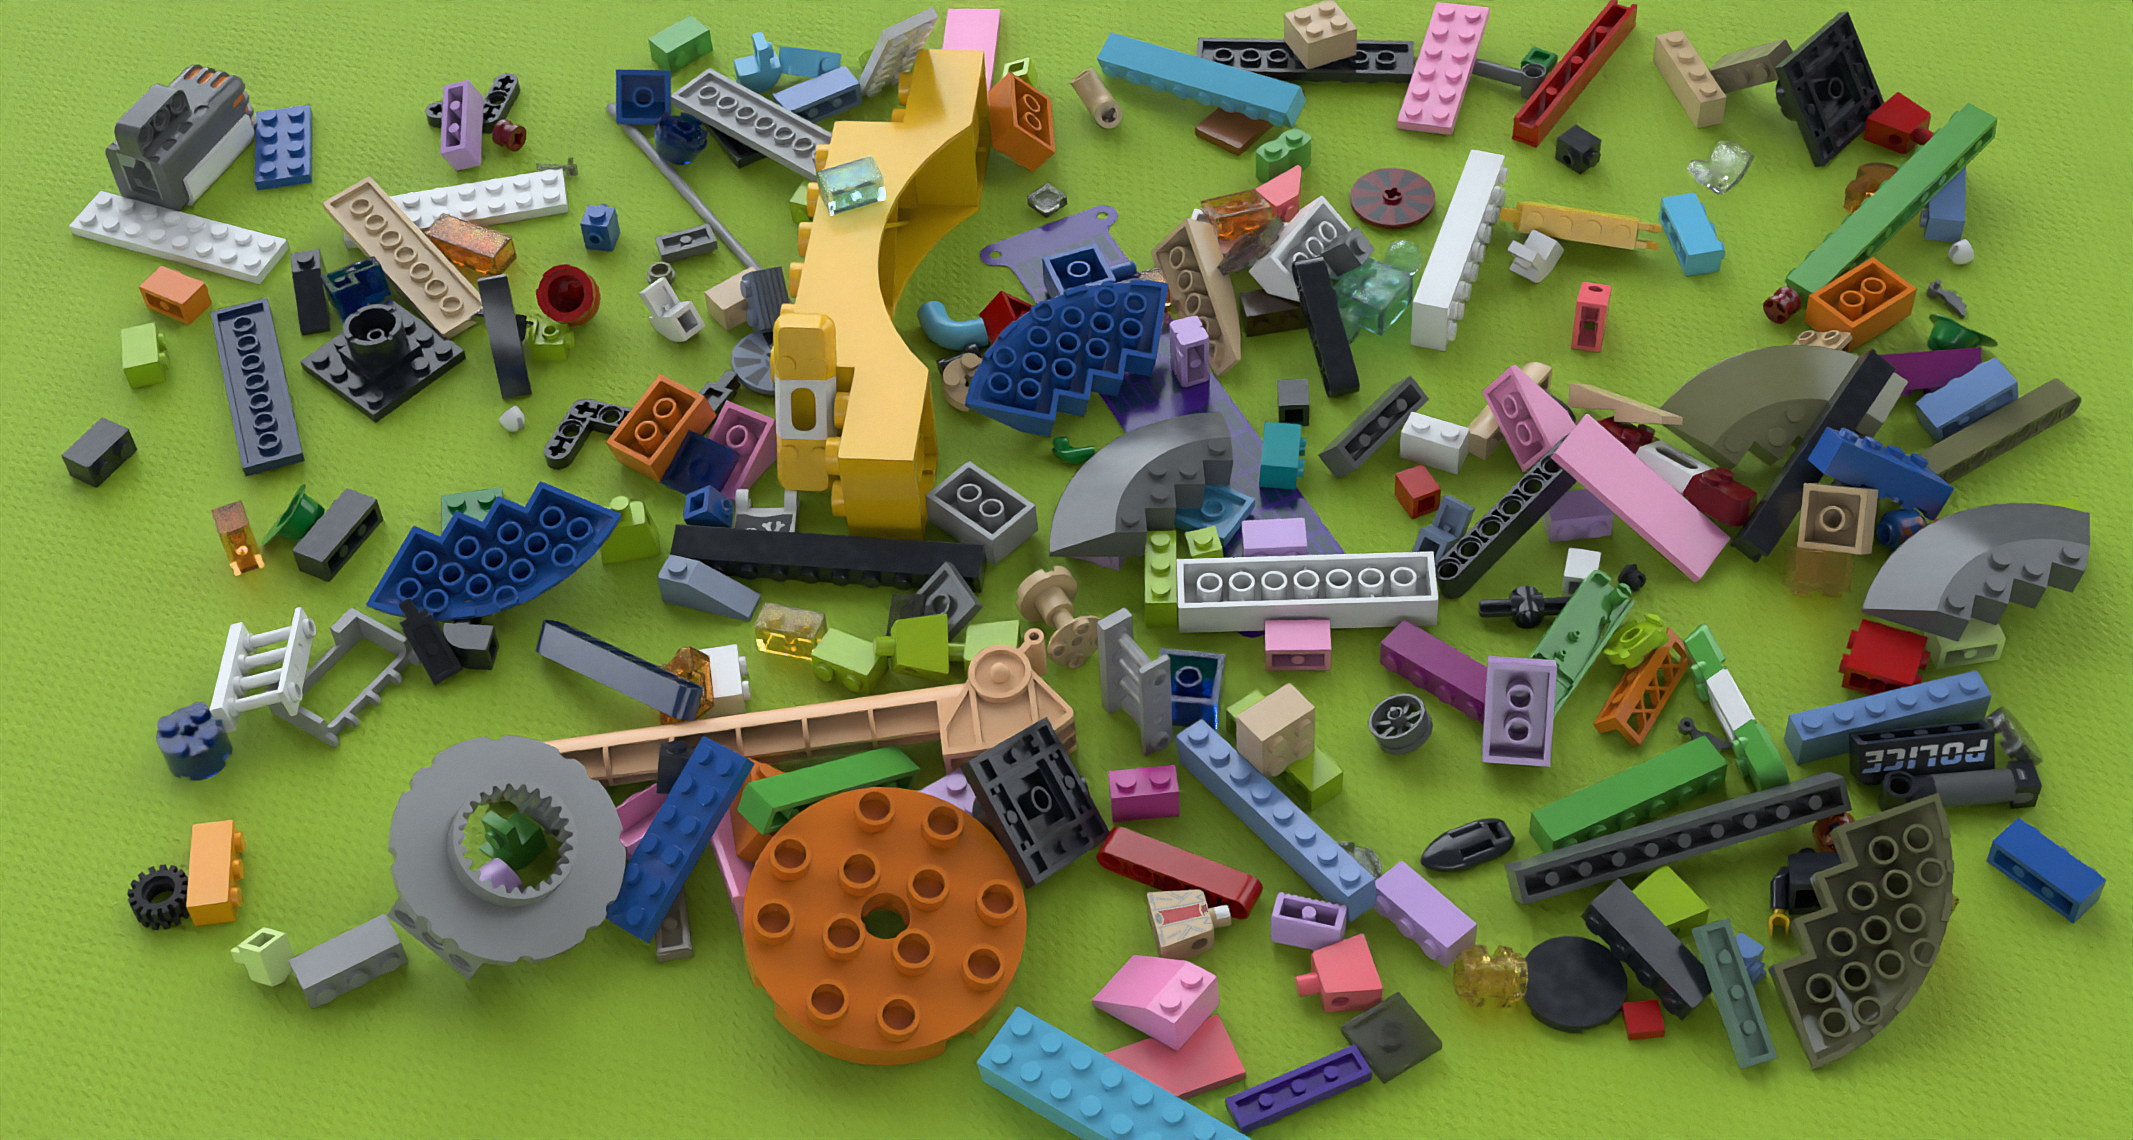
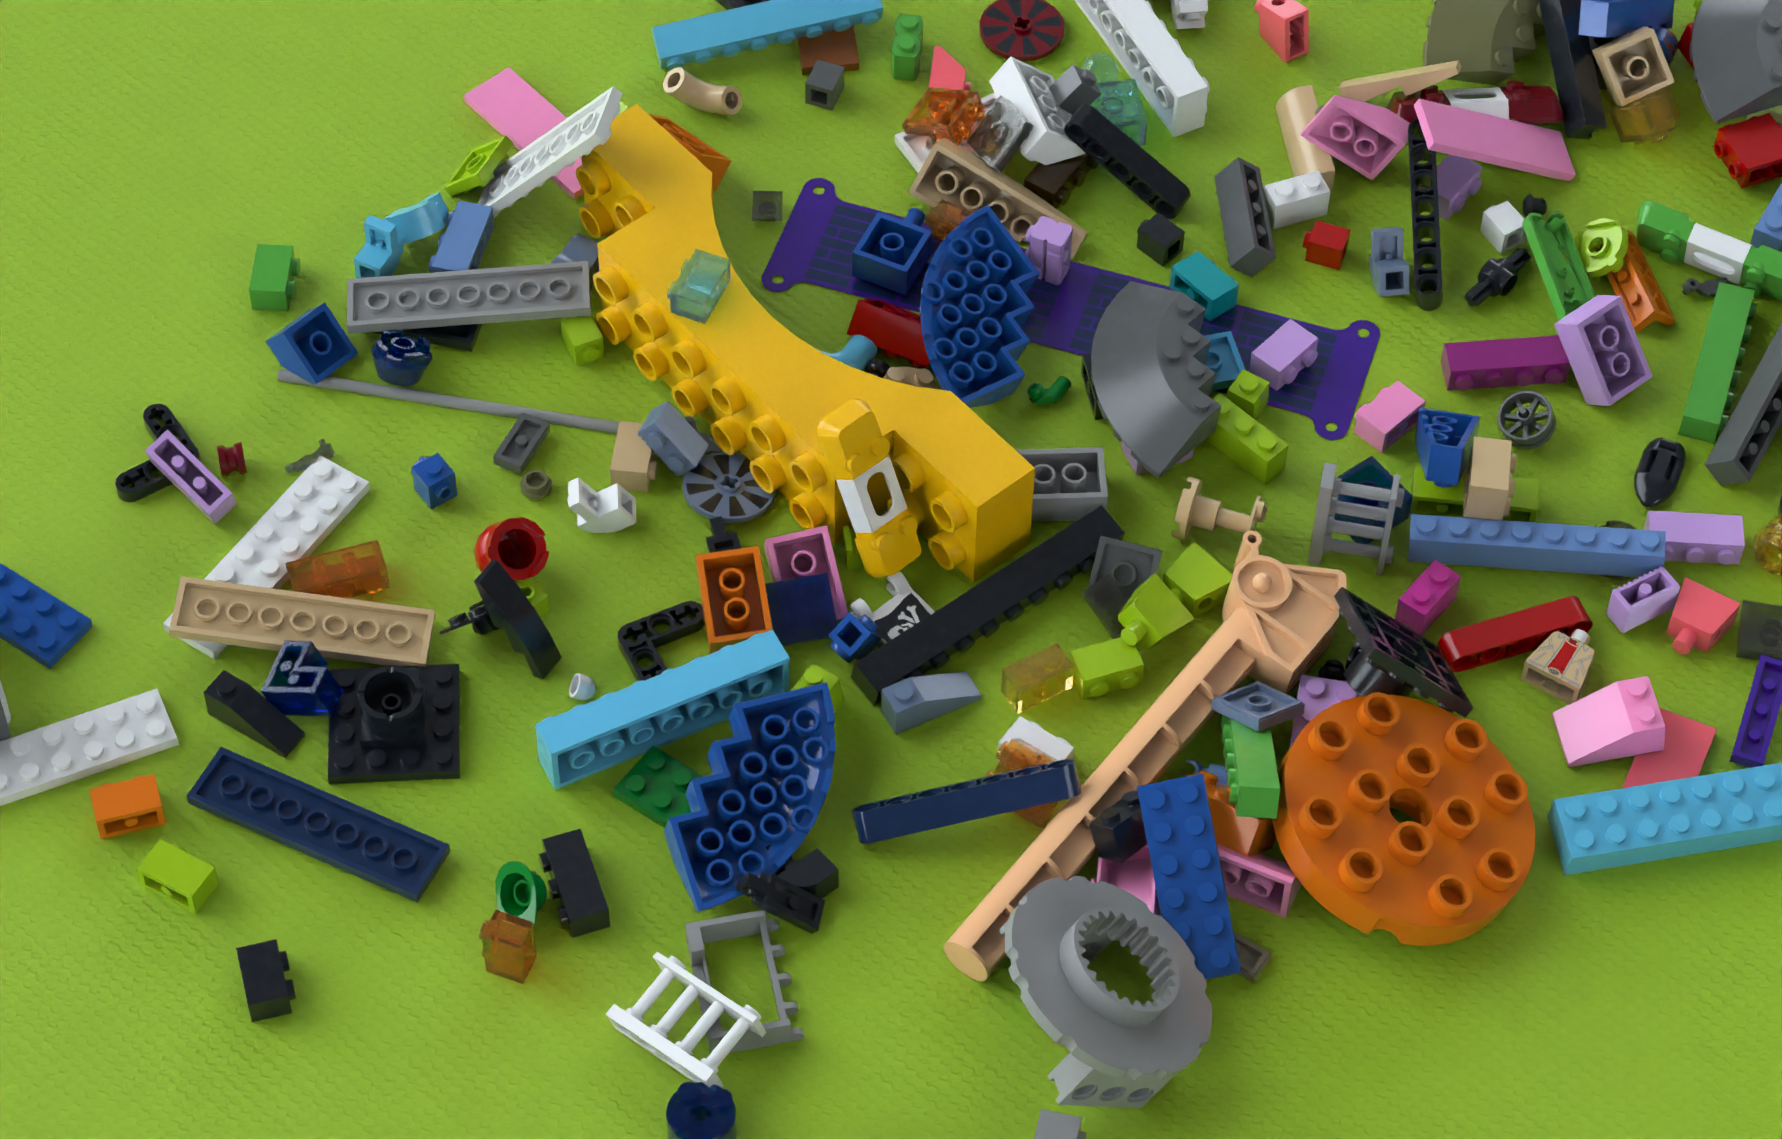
camera: 50 degrees left, 5 degrees up
(518, 459) = (660, 709): none -> medium azure brick
(892, 761) = (1258, 706): none -> sand blue tile
(1193, 146) = (824, 85): none -> dark grey brick
(1311, 676) = (1444, 444): none -> blue wedge
(1336, 587) = (1356, 369): white brick -> none

